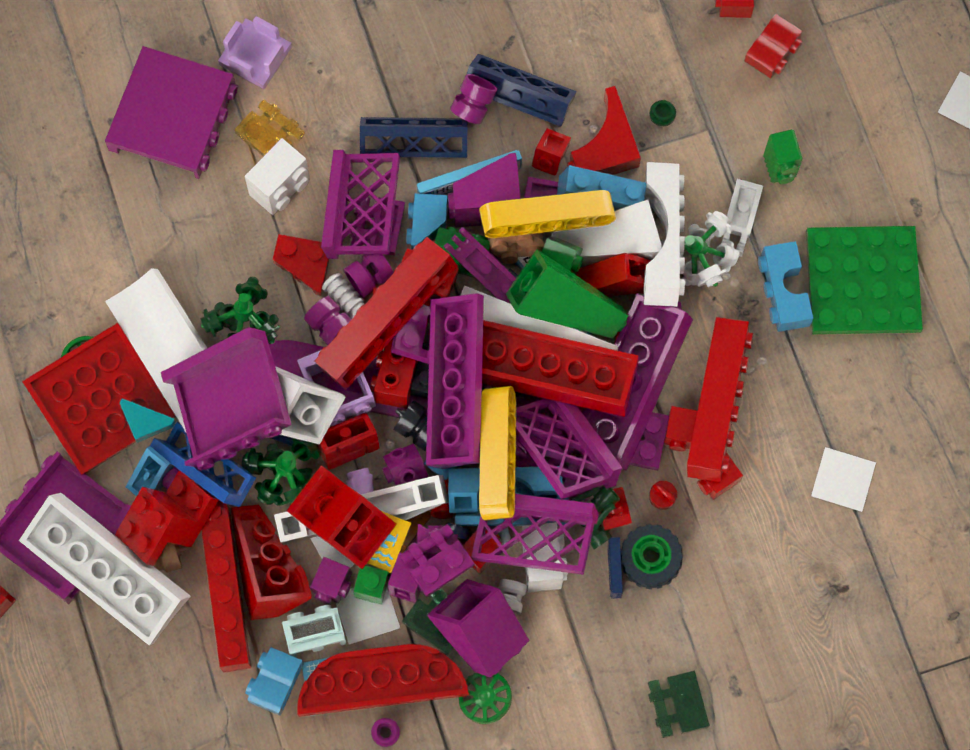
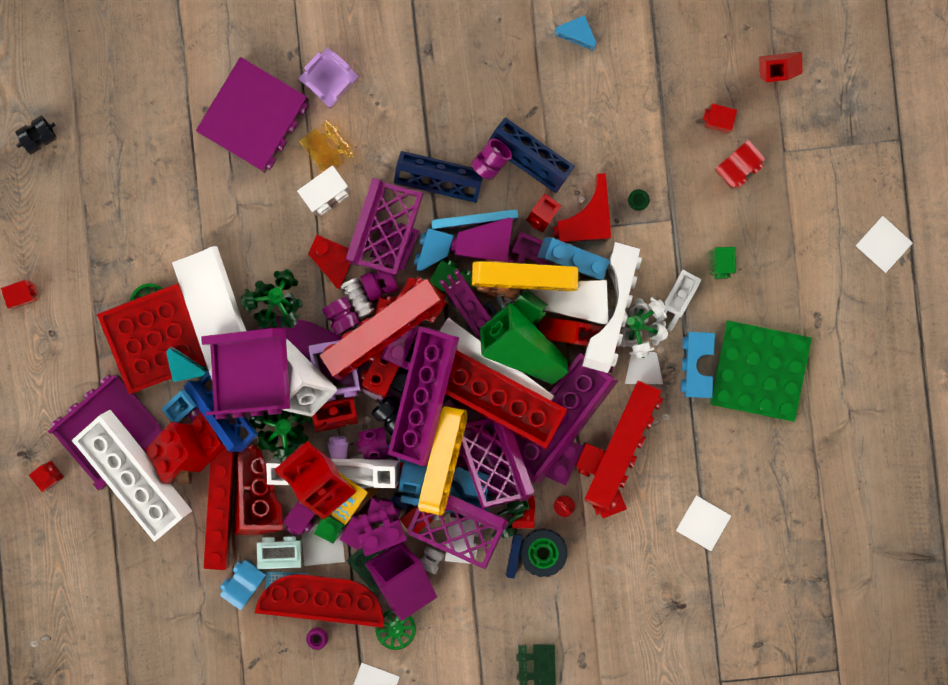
camera: 10 degrees right, 15 degrees up
(721, 304) = (644, 370): none -> white sticker

